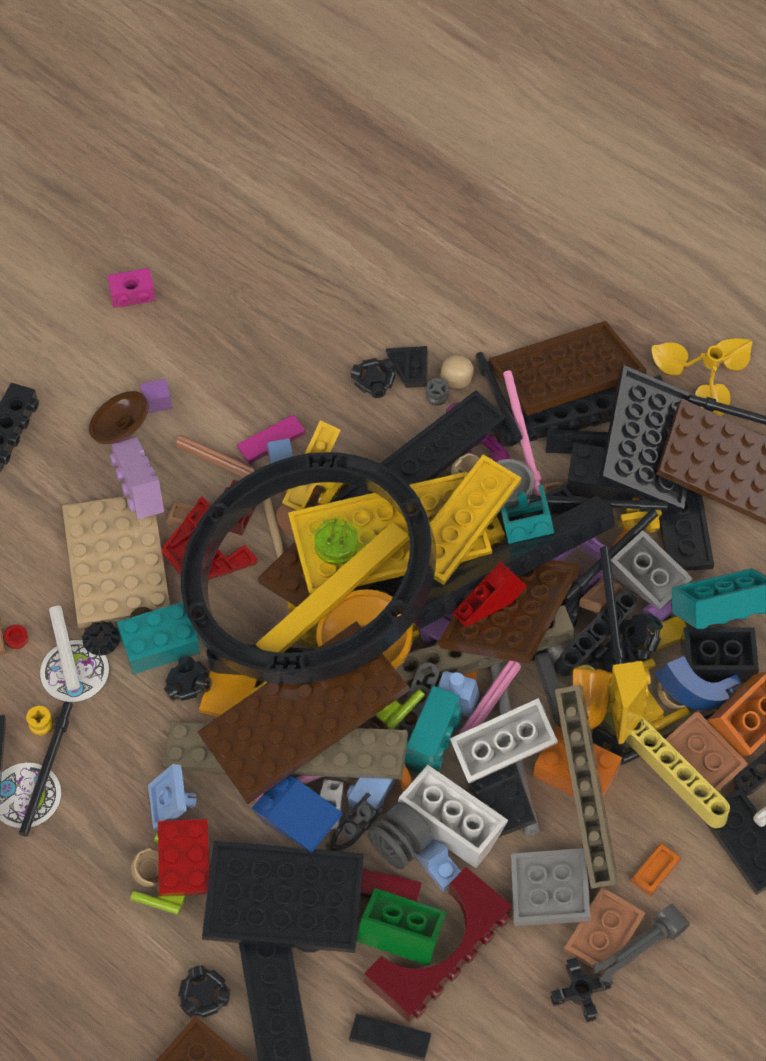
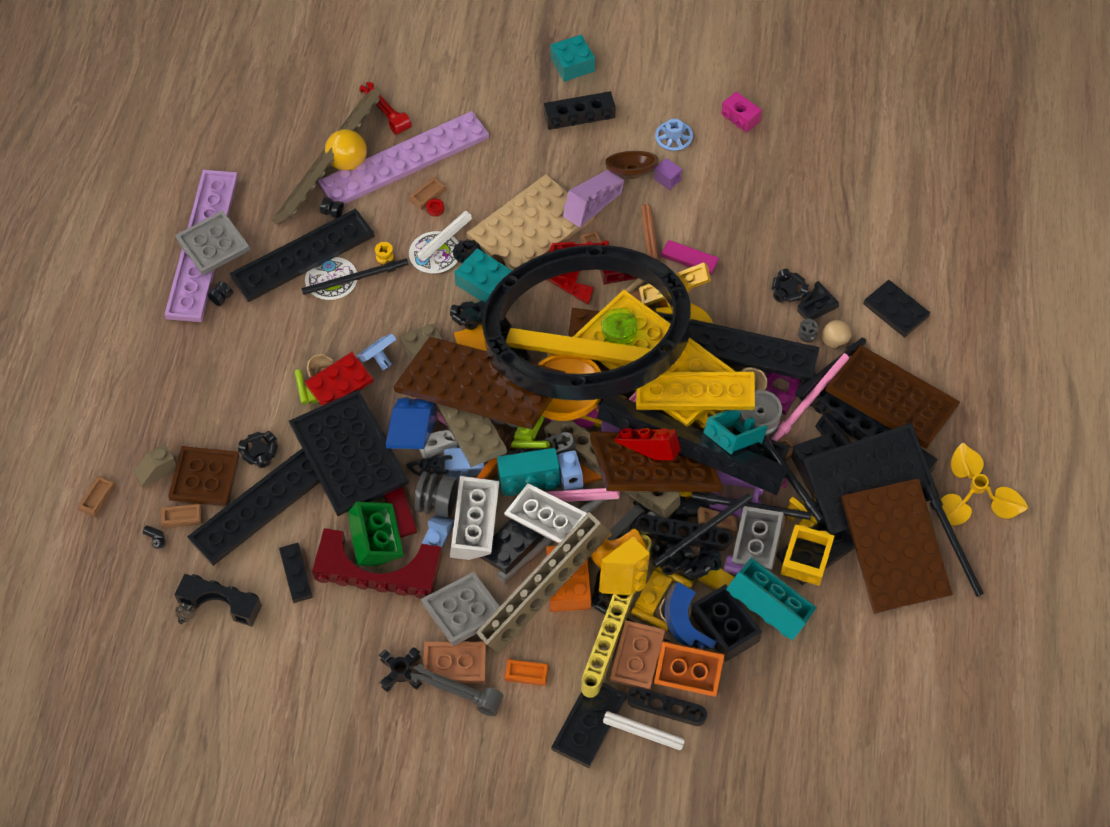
camera: 60 degrees right, 0 degrees up
(106, 359) = (674, 131): none -> light blue wheel
(279, 450) = (678, 263): medium blue brick -> none
(463, 306) = (896, 308): none -> black plate
(708, 557) = (801, 571): none -> yellow window

